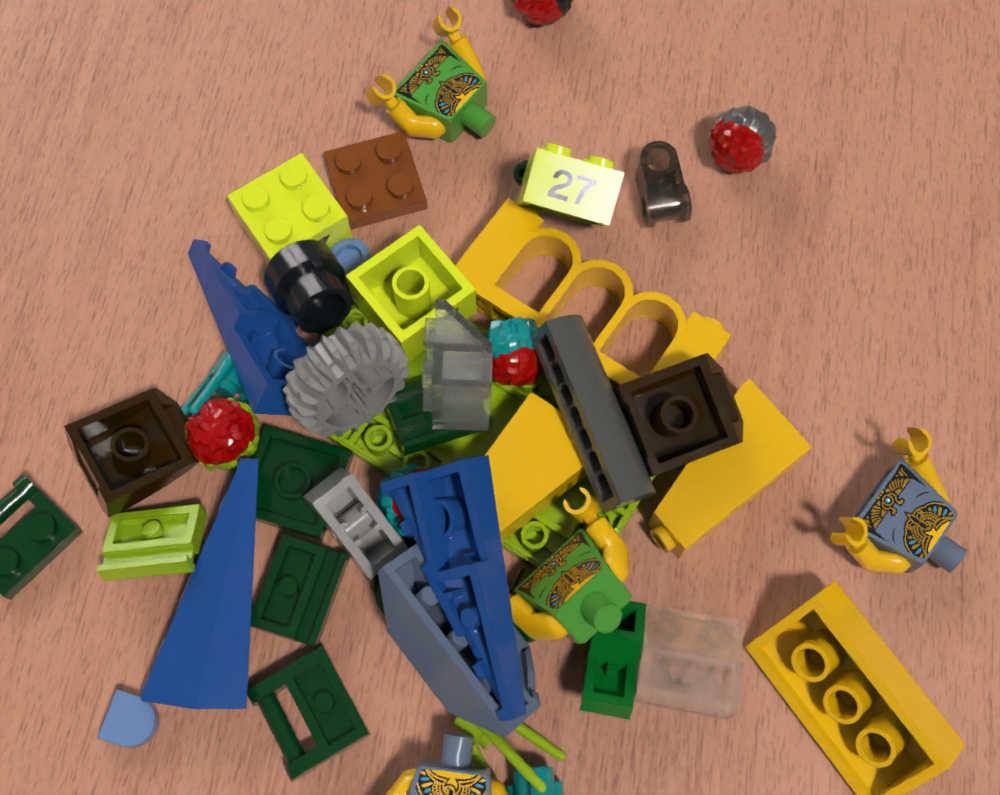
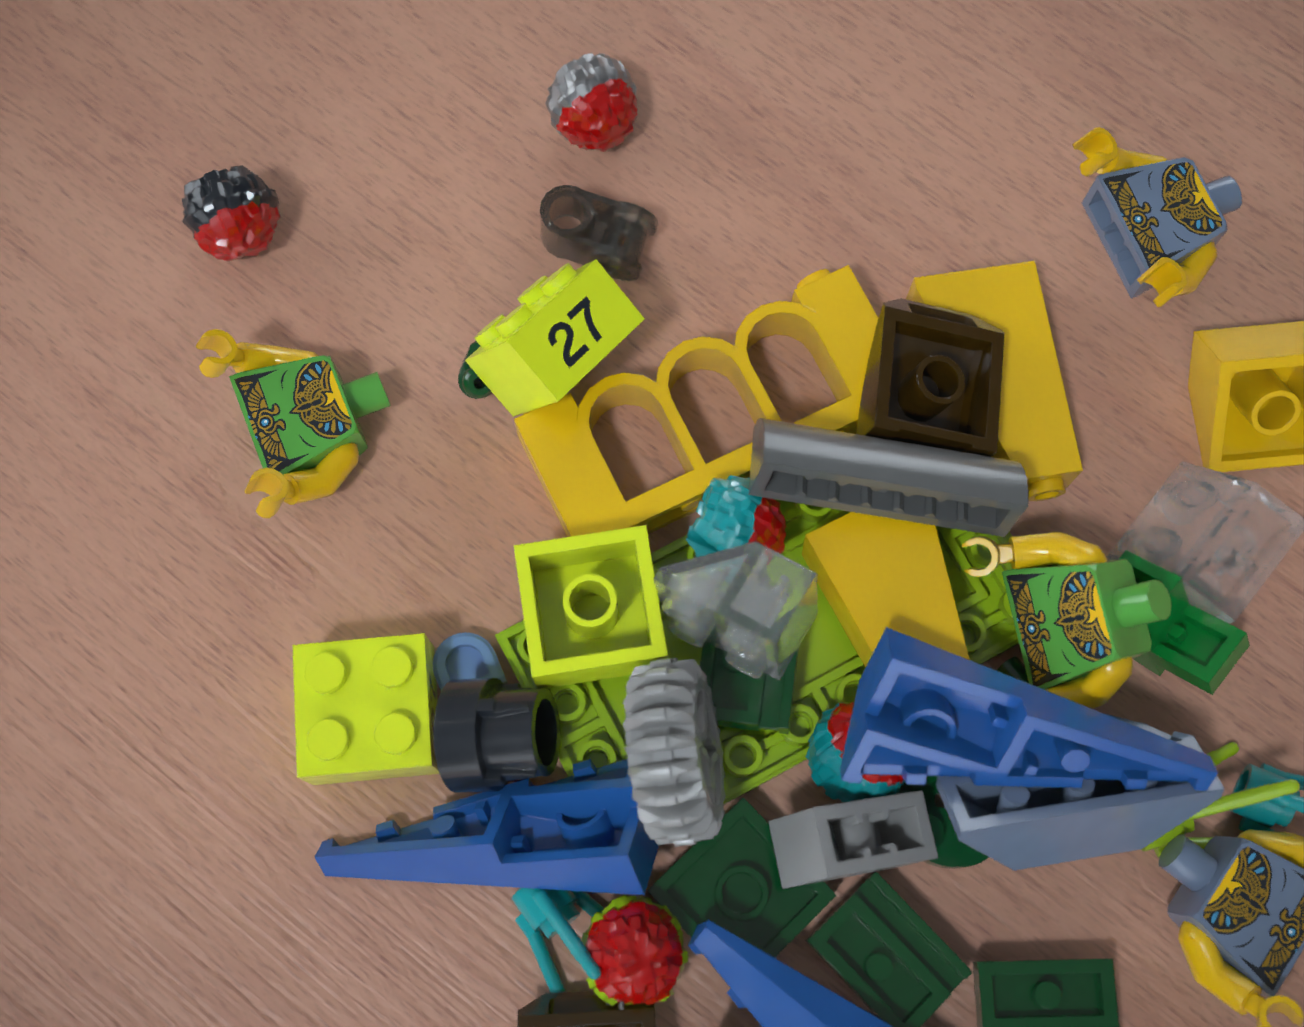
camera: 60 degrees left, 5 degrees up
(376, 180) = (366, 571): dark orange plate -> none

